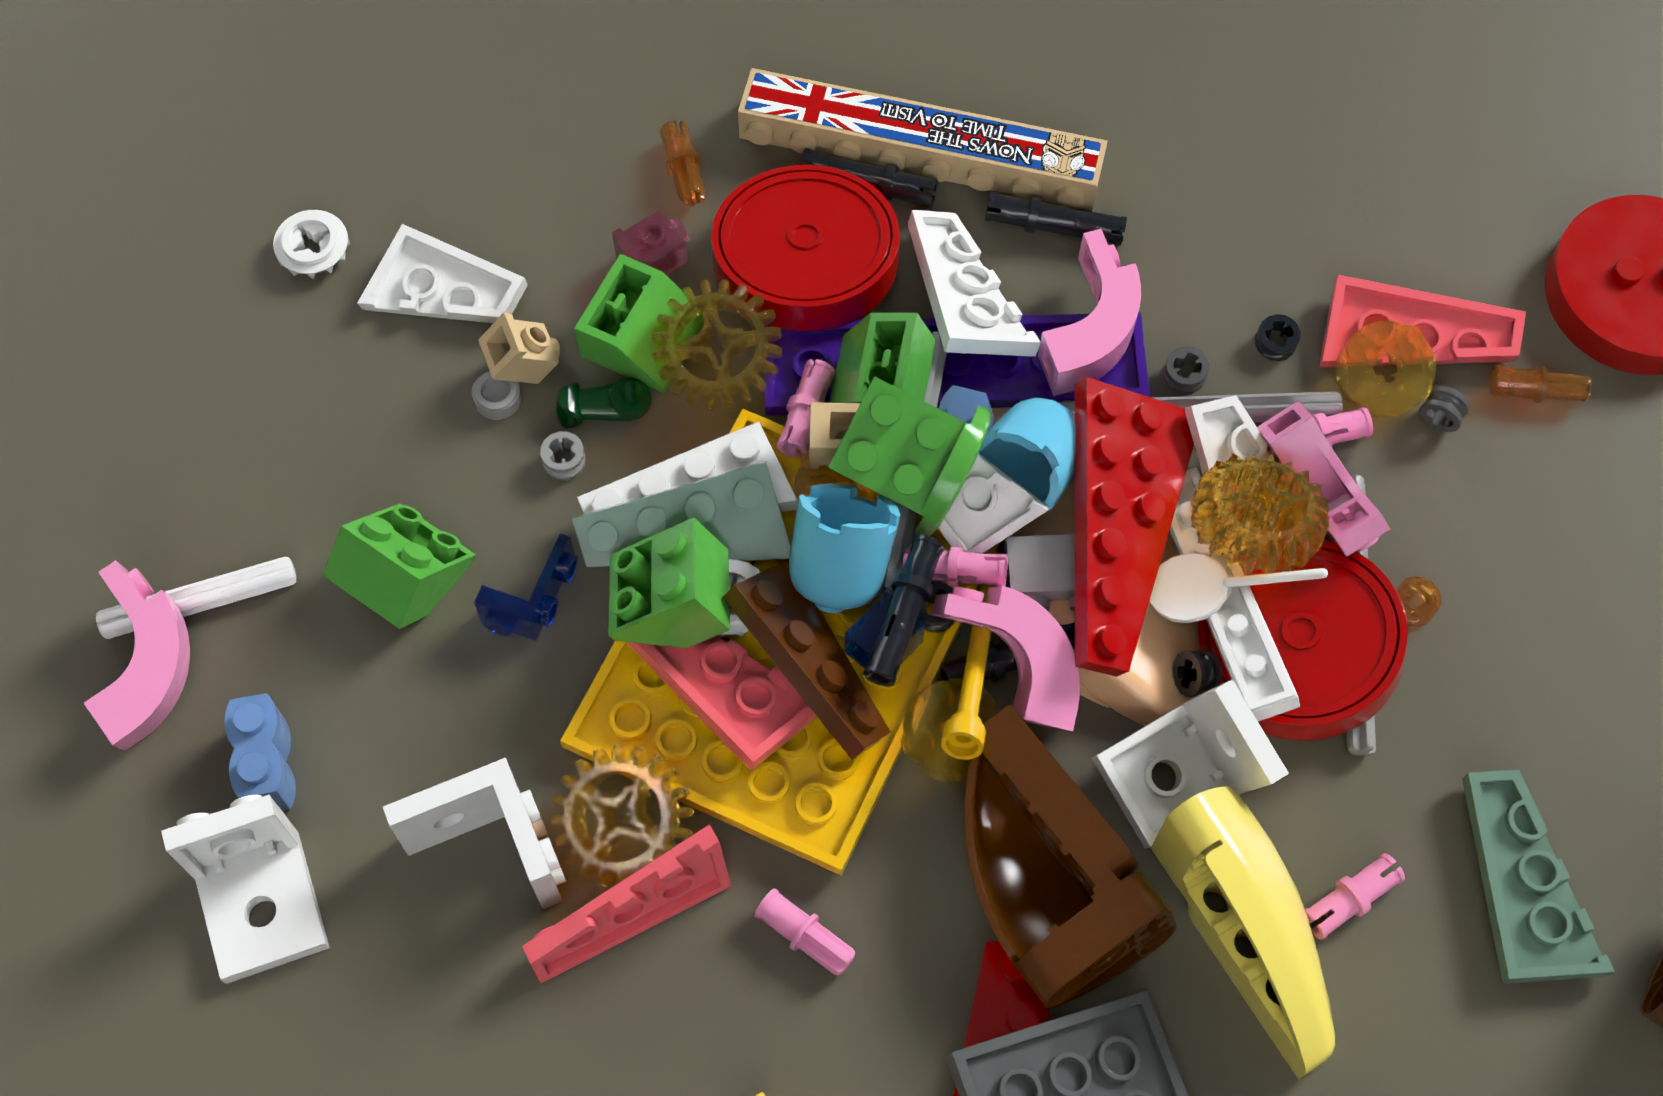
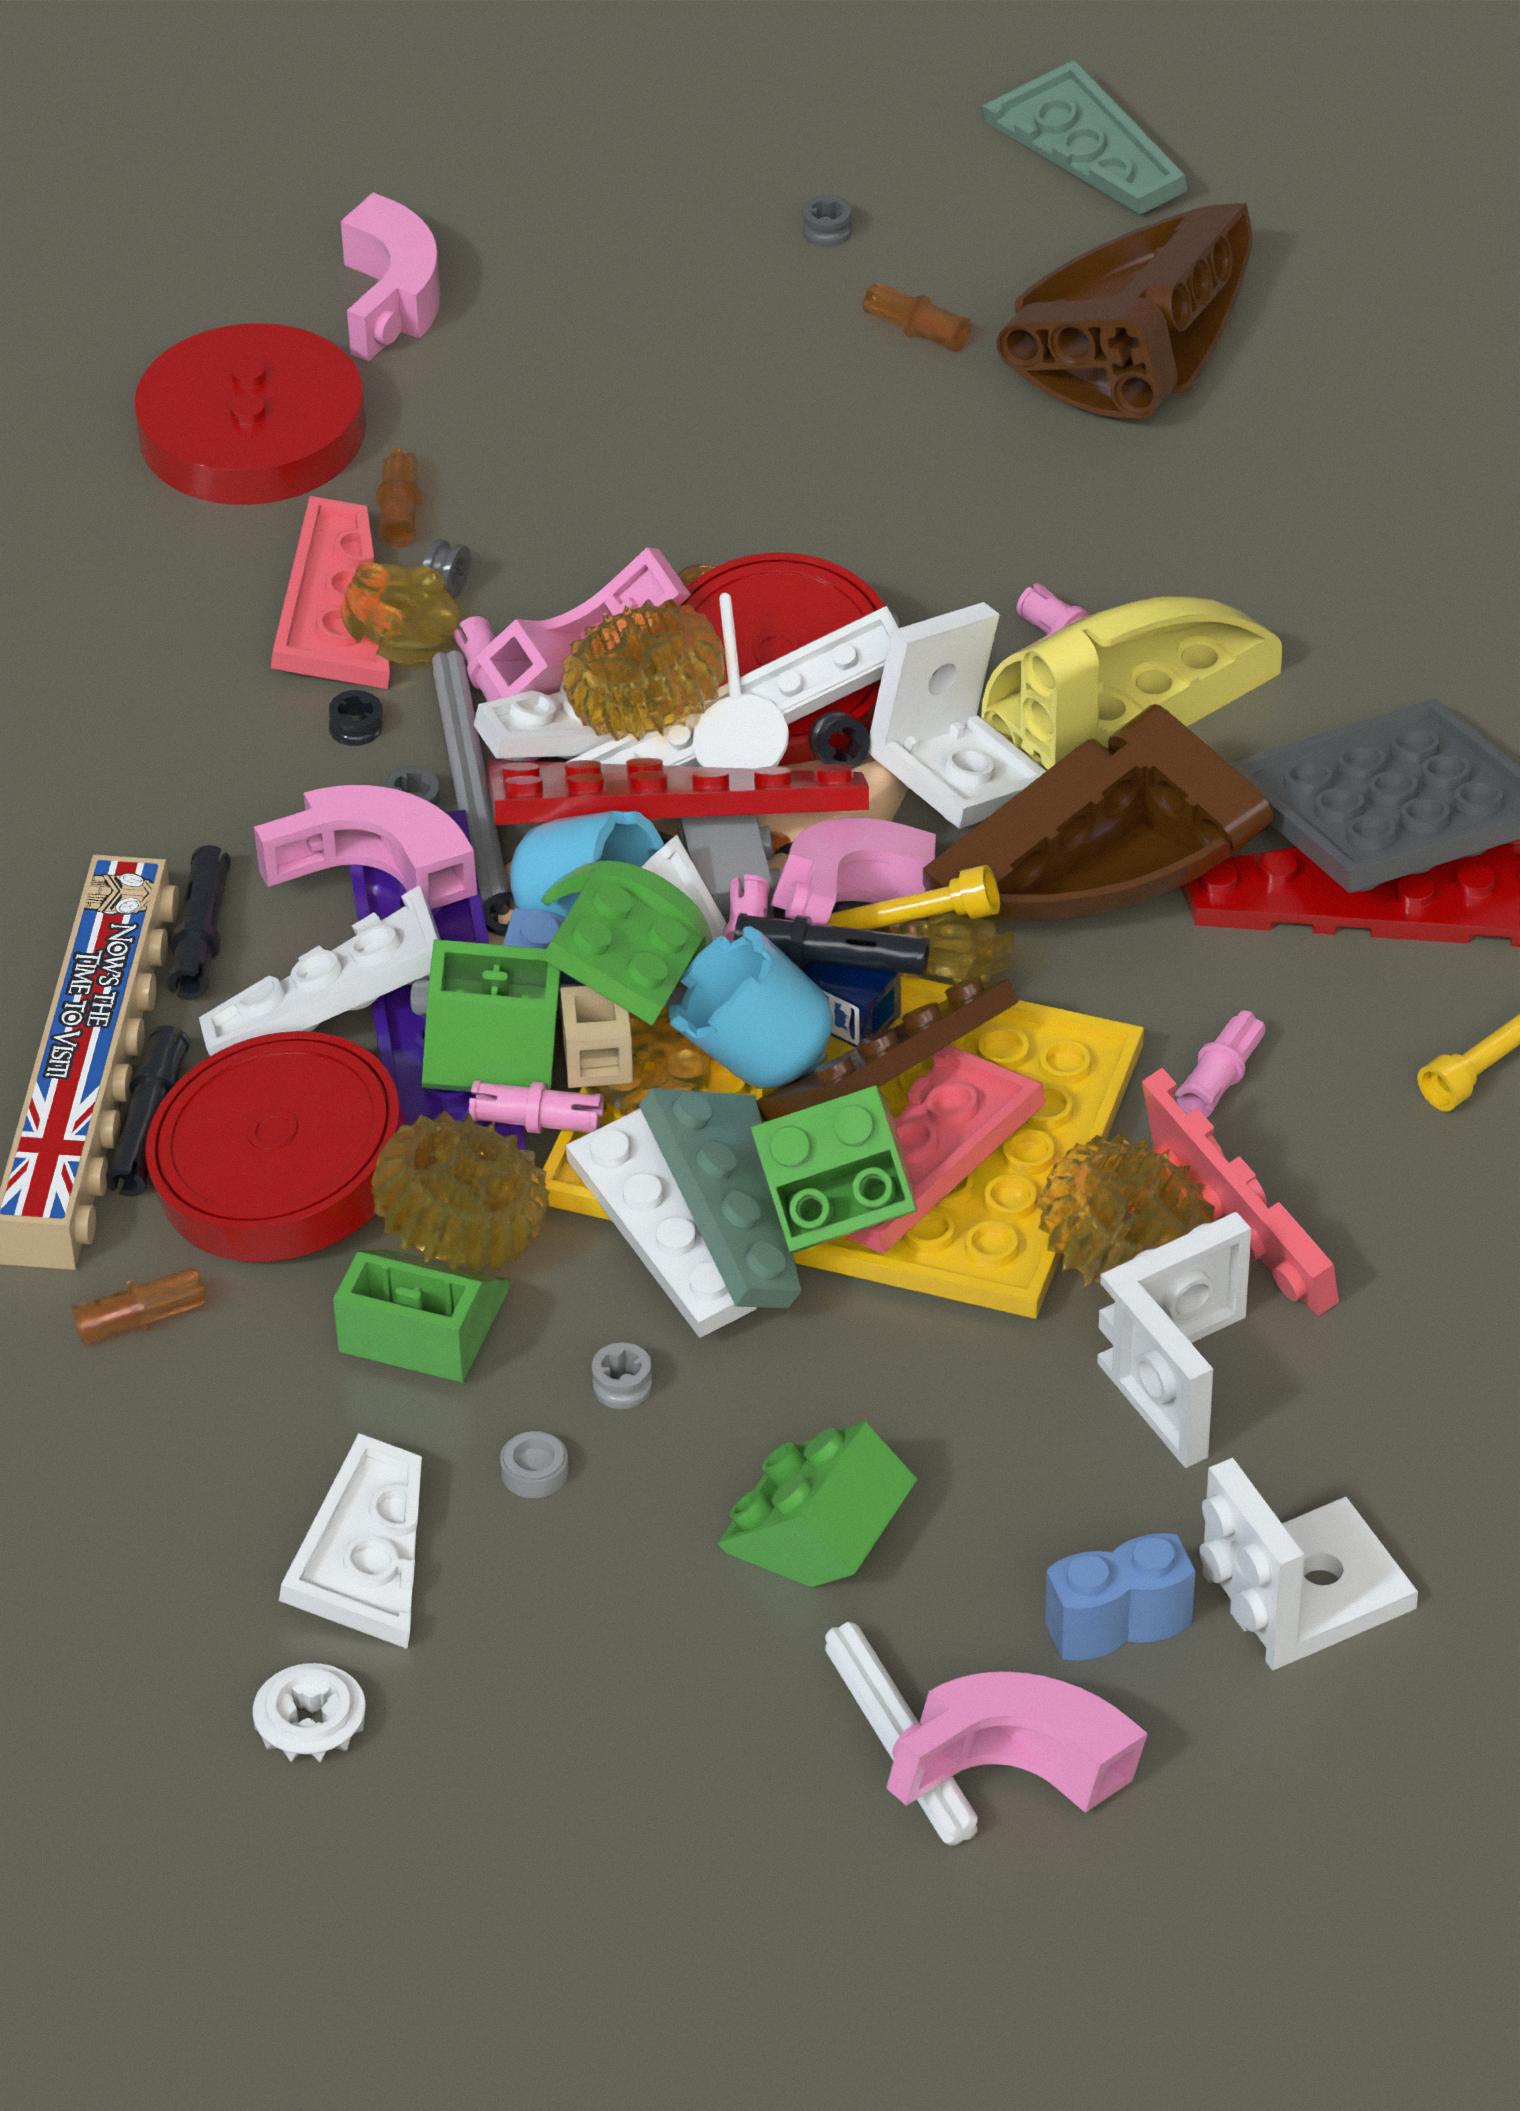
camera: 95 degrees left, 20 degrees down
(509, 614) = (833, 1352): clear blue bracket -> none
(530, 350) = (478, 1418): tan brick -> none
(619, 401) = (531, 1339): dark green piece -> none
(654, 242) = (279, 1308): clear pink brick -> none
(1526, 889) = (1048, 499): sand green wing -> none

